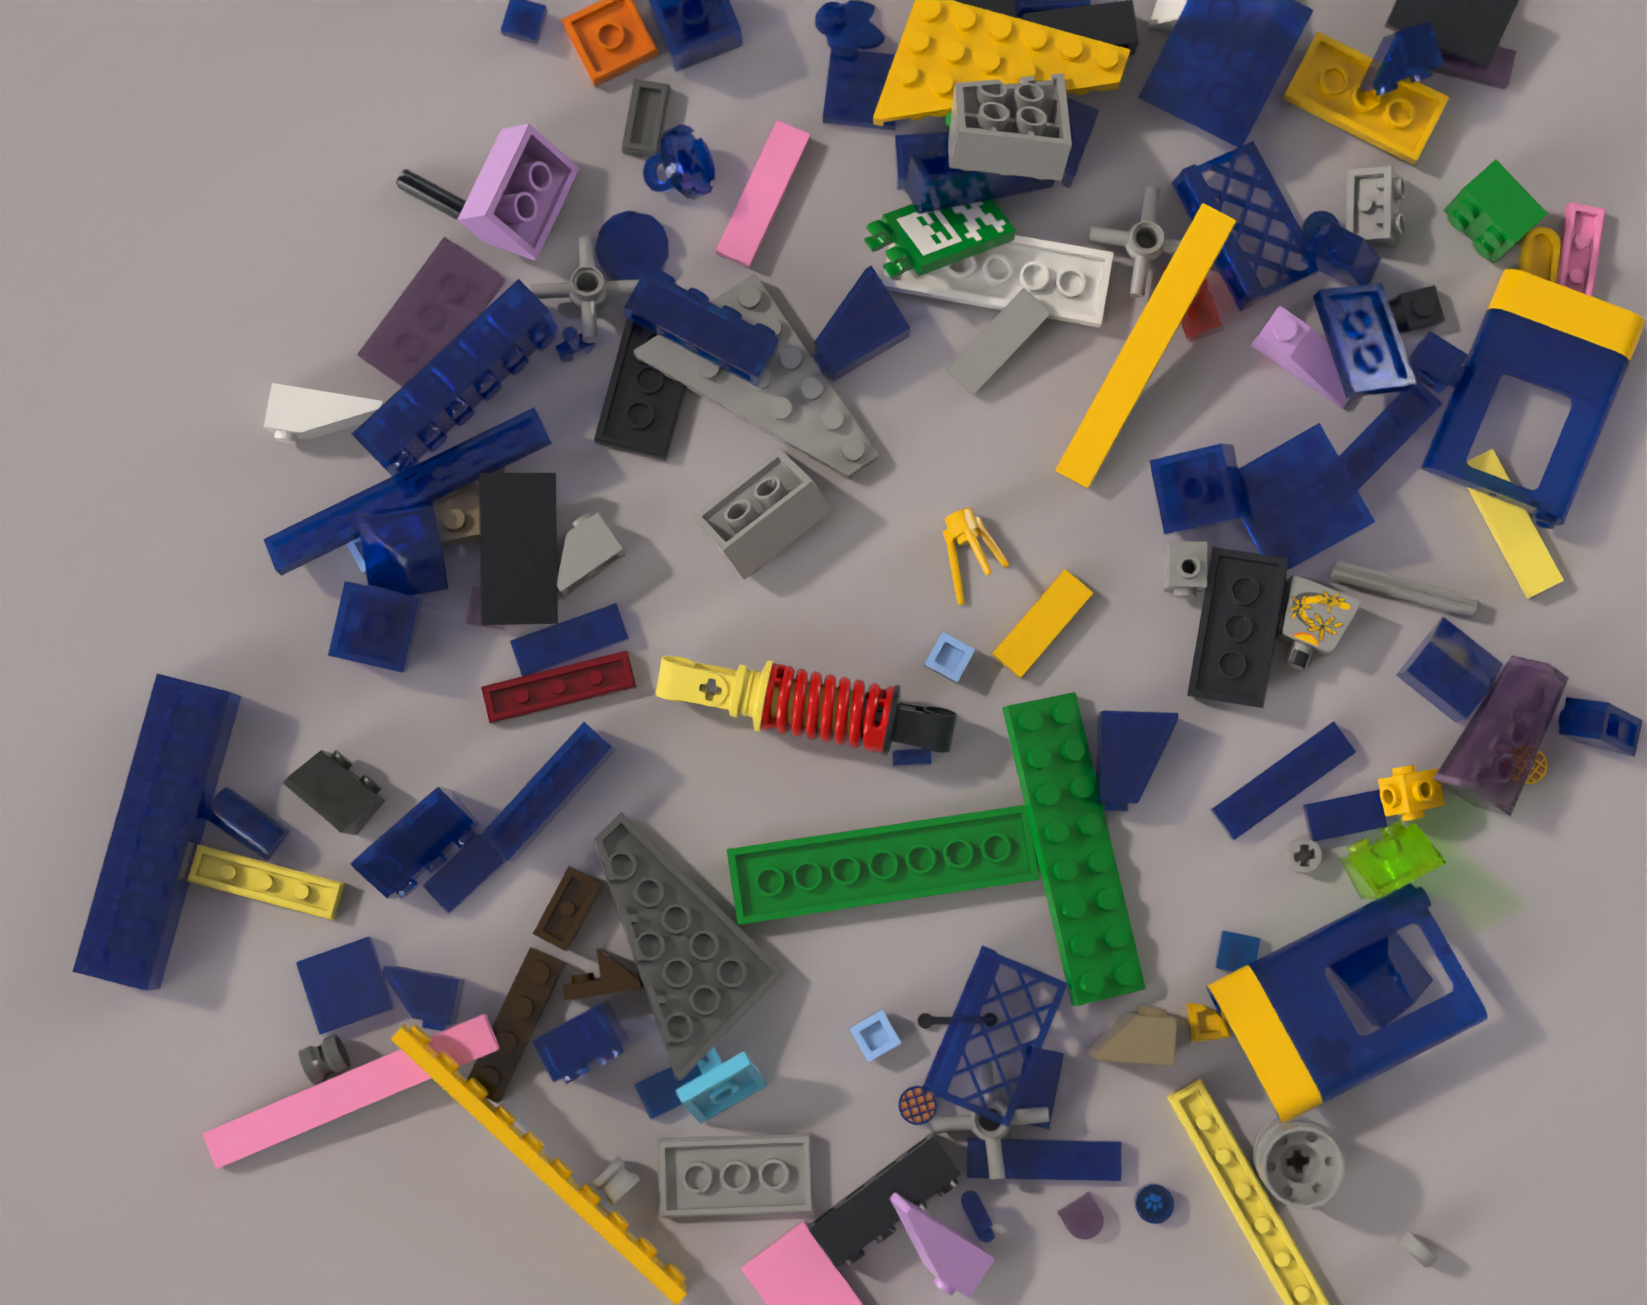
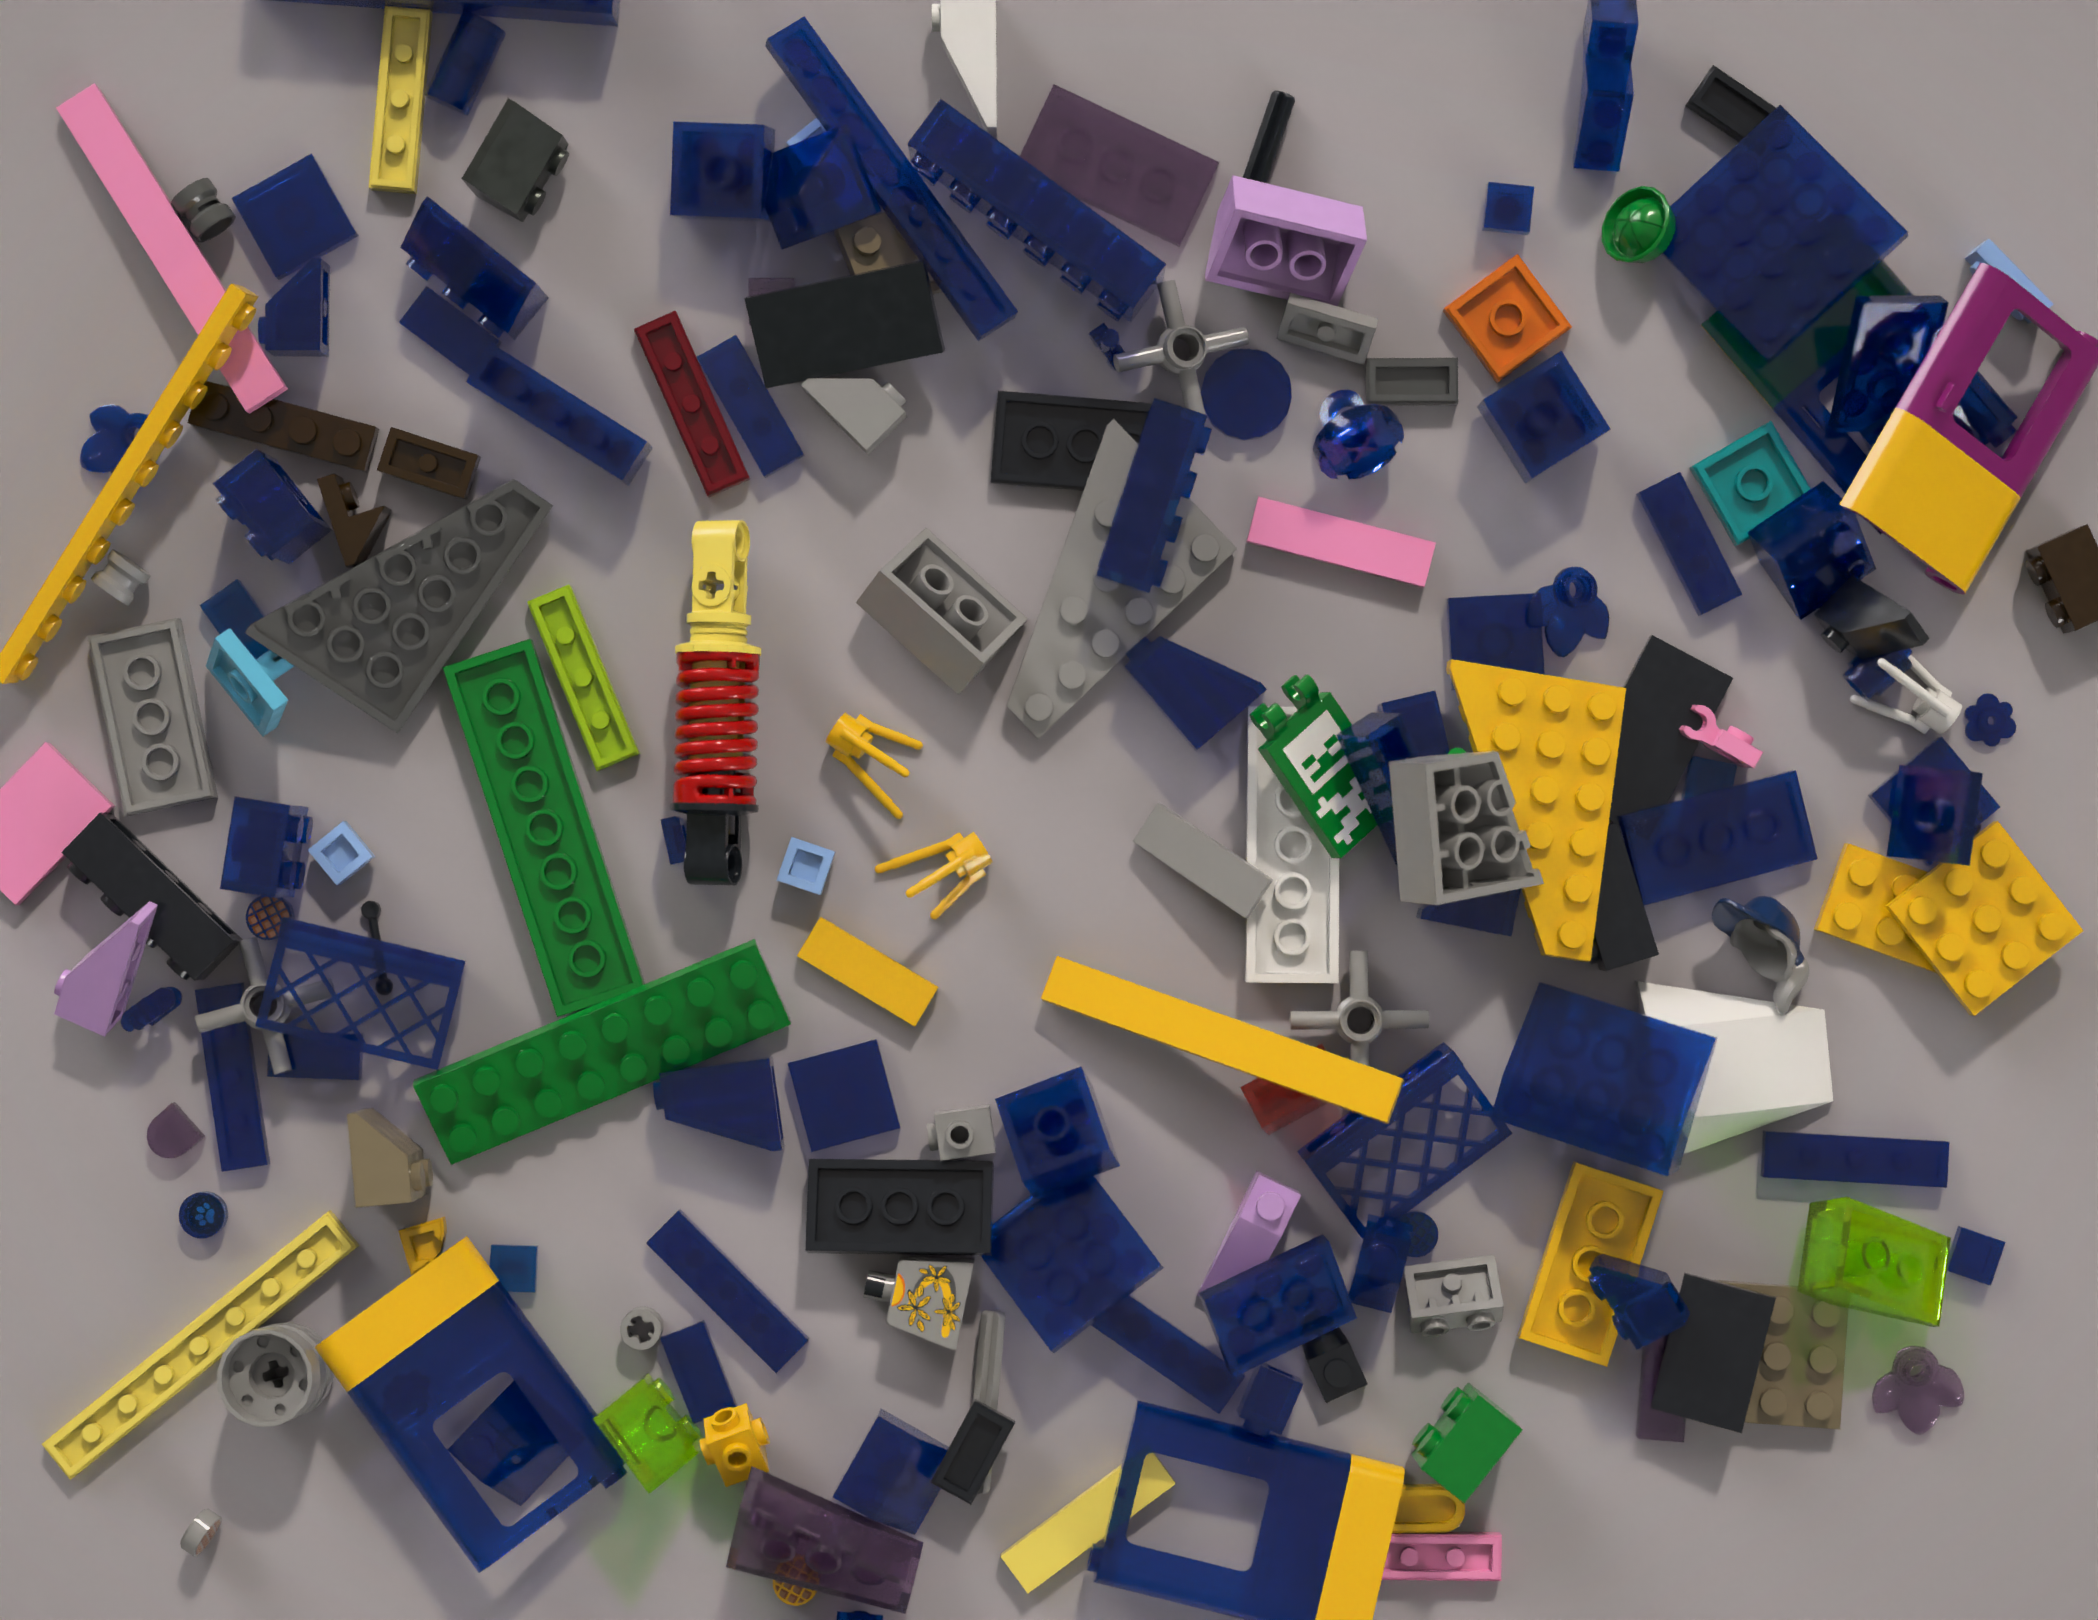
camera: 80 degrees right, 5 degrees up
(500, 1168) = (114, 435): none -> clear blue plate
(592, 174) = (1327, 328): none -> light grey plate
(765, 812) = (583, 677): none -> lime tile
(853, 603) = (851, 738): none -> yellow plant
(862, 1095) = (266, 848): none -> clear blue brick
(1139, 660) = (844, 1095): none -> clear blue tile
(1444, 602) = (973, 1451): none -> black tile

